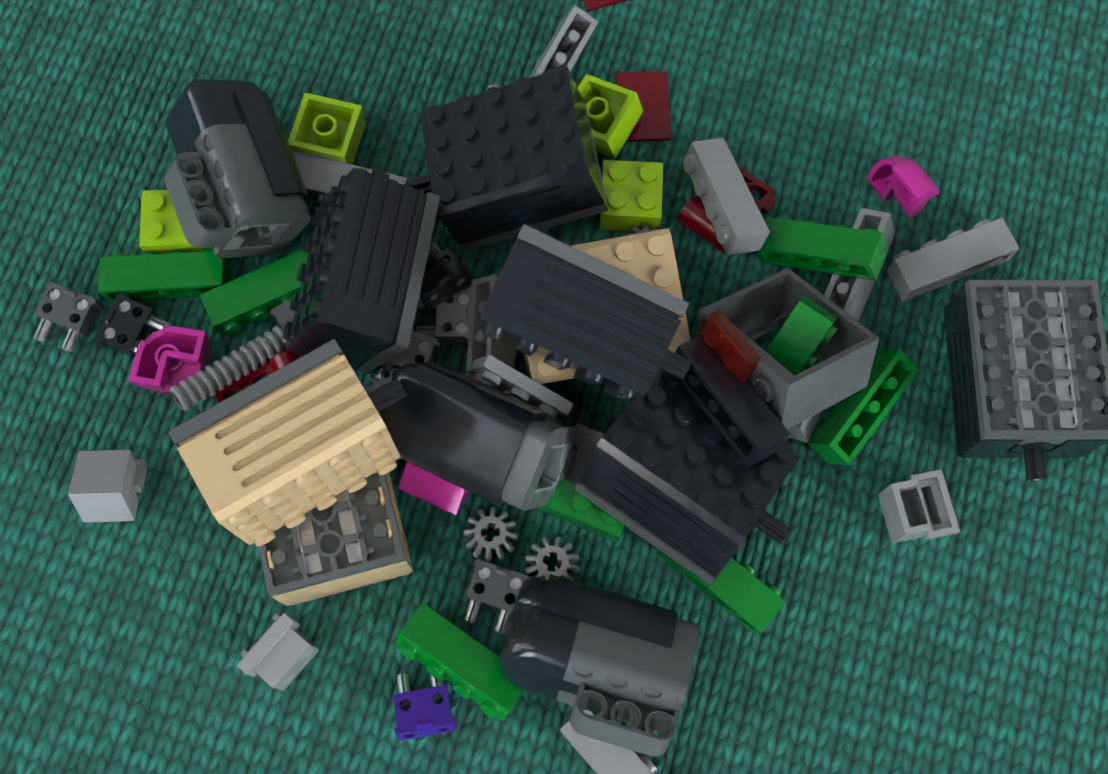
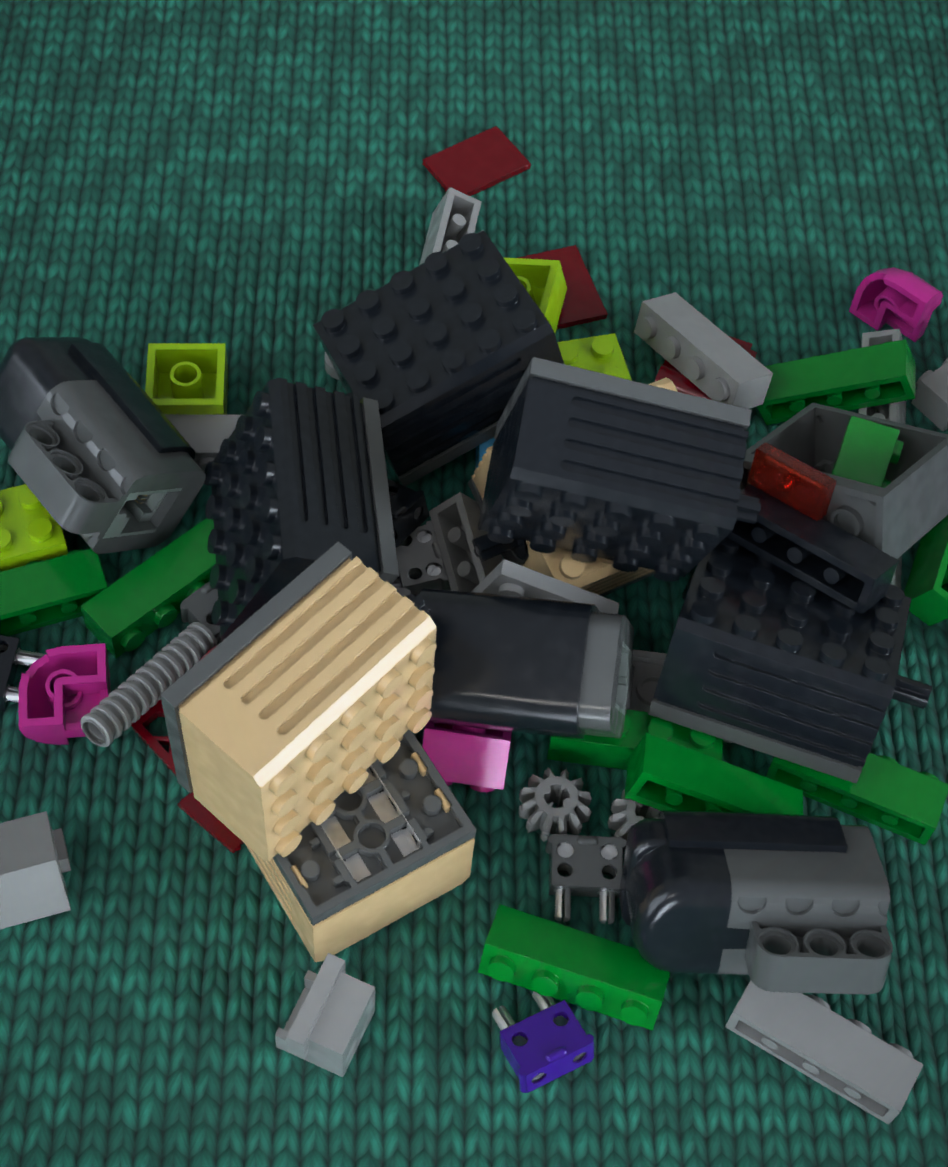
camera: 20 degrees left, 15 degrees down
(601, 559) = (687, 780): none -> green brick

